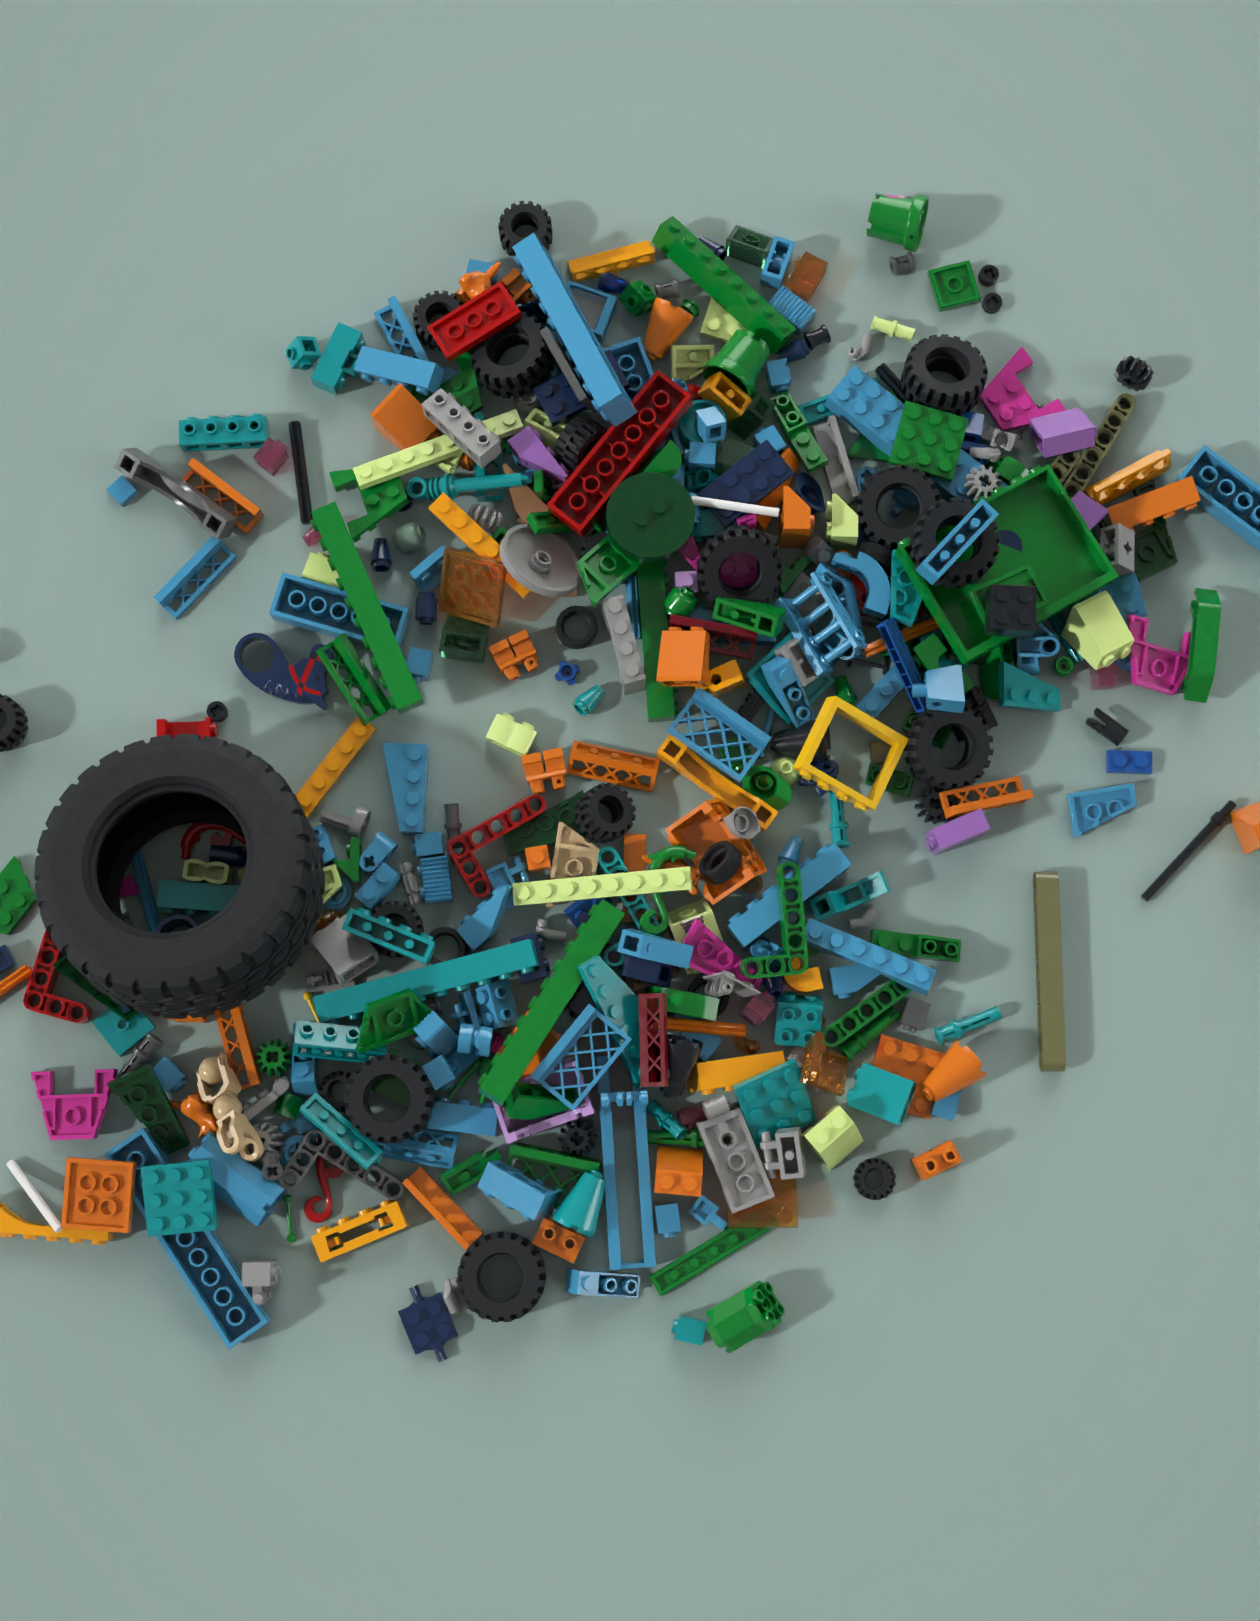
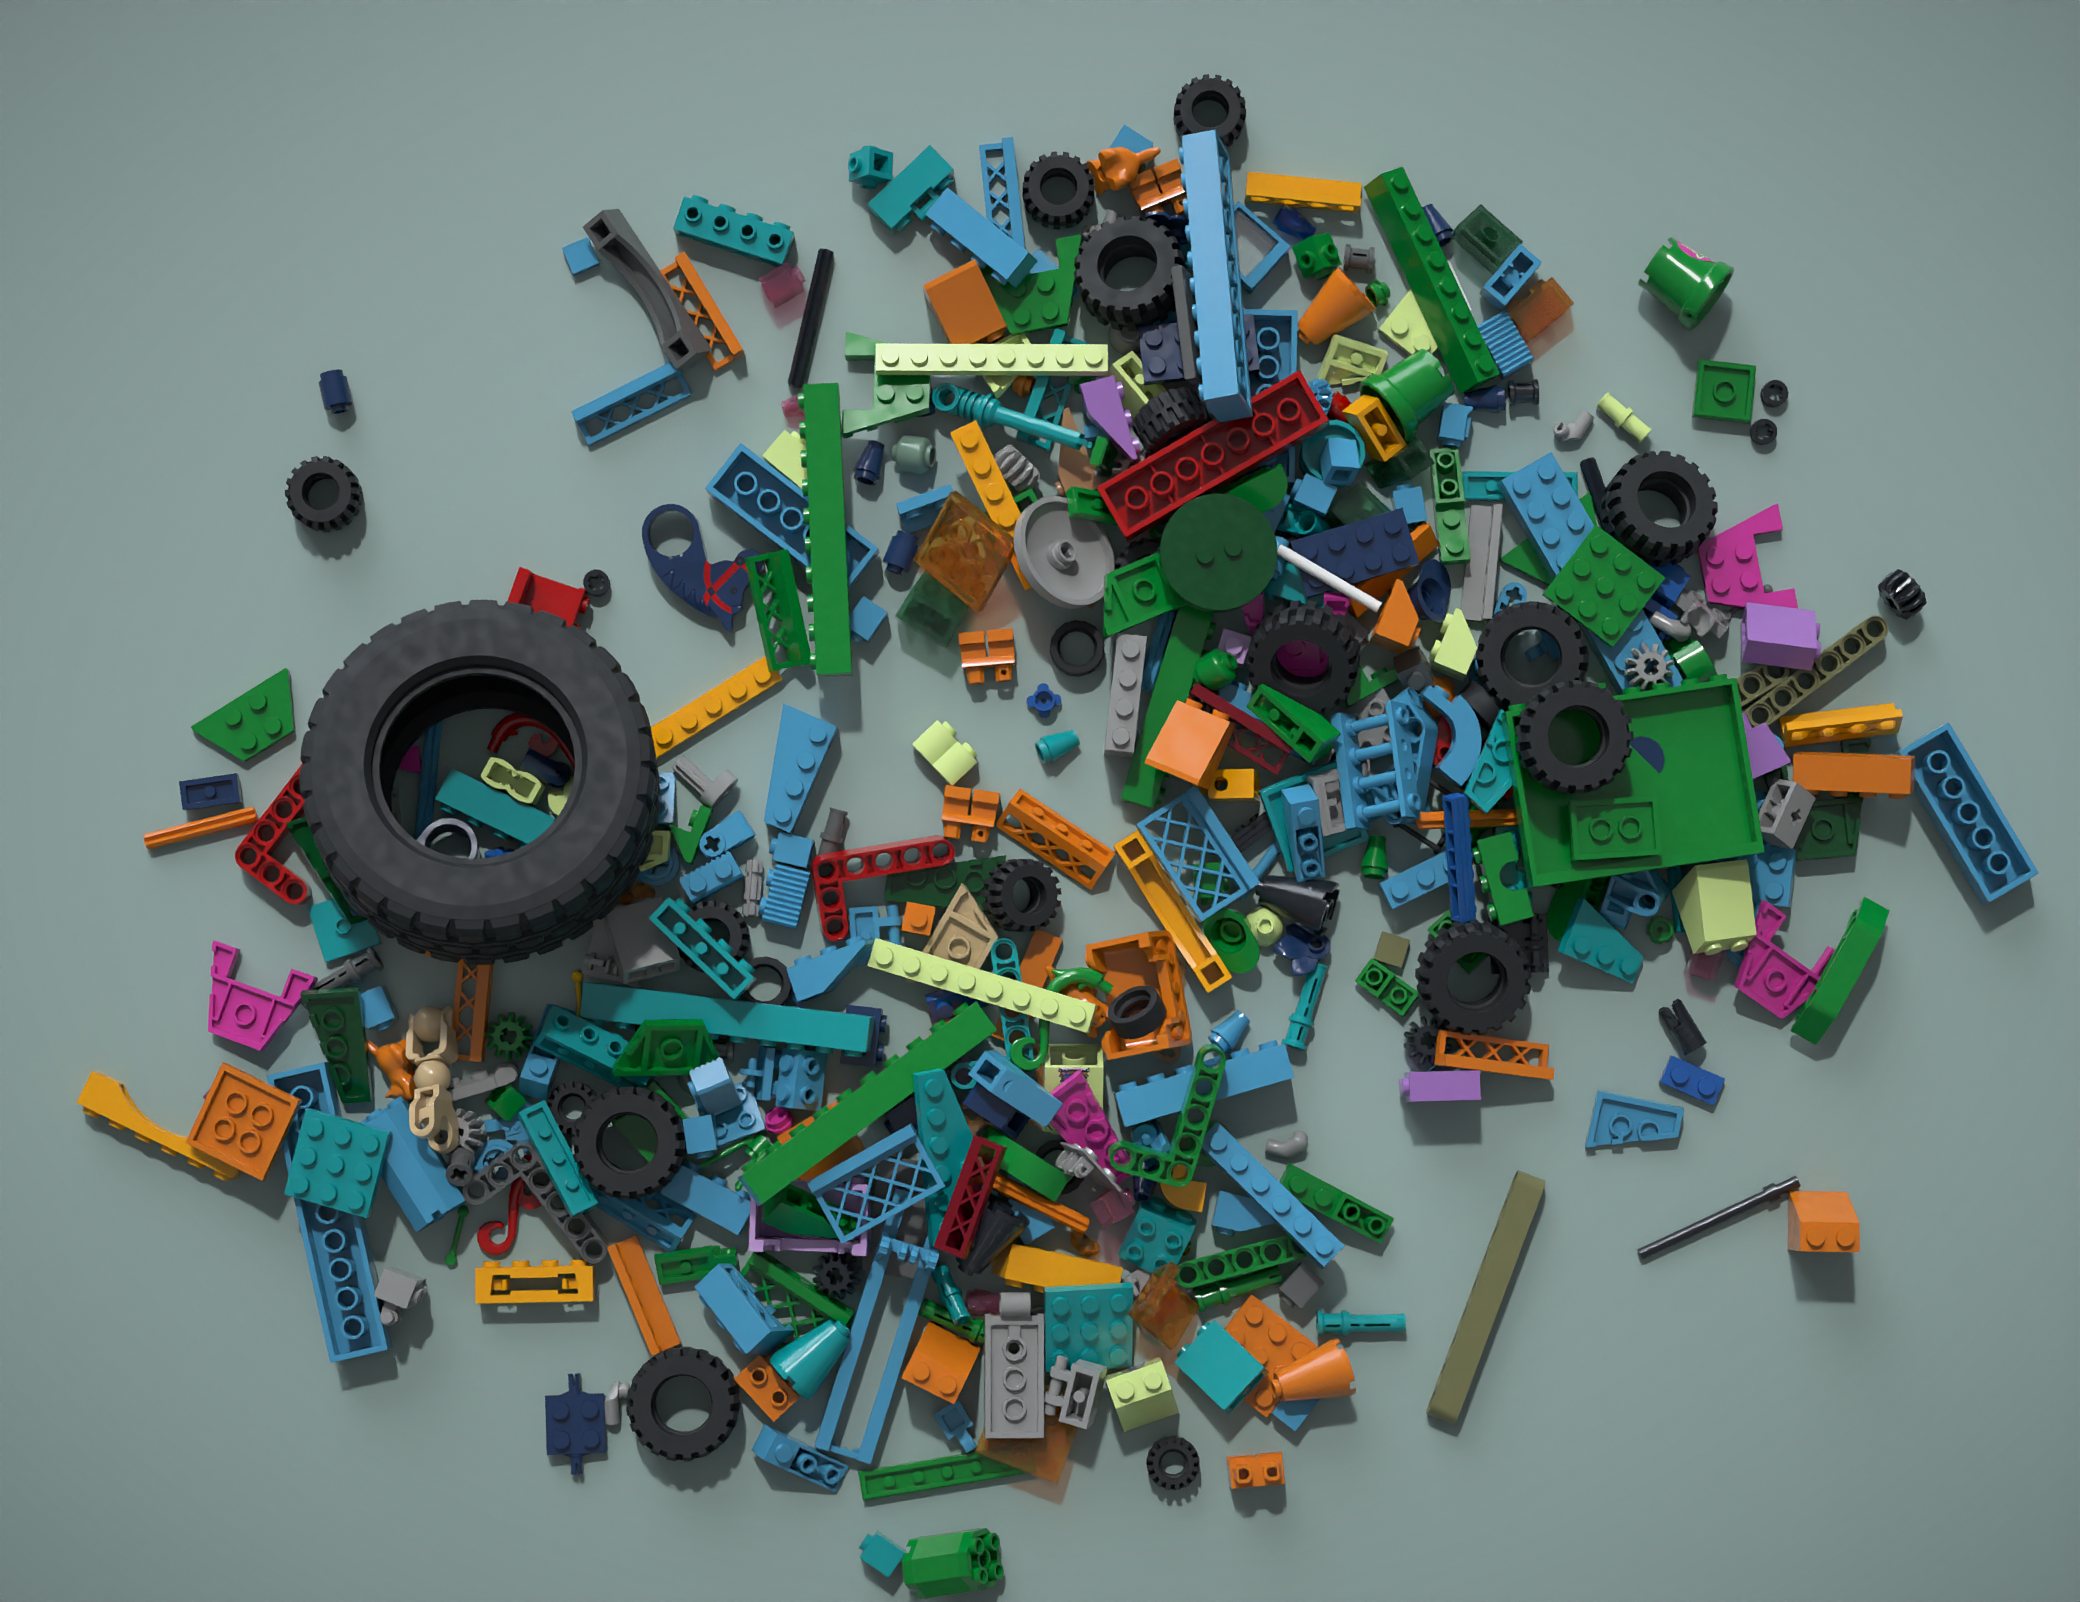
camera: 20 degrees right, 5 degrees up
(34, 1195) = (166, 1091): white bar -> none
(462, 428) = (1030, 348): light grey brick -> none
(474, 321) = (1098, 215): red plate -> none
(475, 1040) = (758, 1111): dark azure wheel -> none
(547, 933) = (895, 1013): light grey arm -> none
(668, 1219) = (906, 1413): dark azure brick -> none
(742, 823) = (1183, 975): light grey hat -> none
(849, 896) = (1278, 1112): teal arch -> none
(896, 740) = (1307, 909): yellow window -> none
(908, 260) = (1677, 342): dark grey bush -> none
(942, 689) = (1489, 908): dark azure torso -> none
(957, 541) = (1571, 743): dark azure brick -> none
(1010, 610) = (1607, 848): black brick -> none

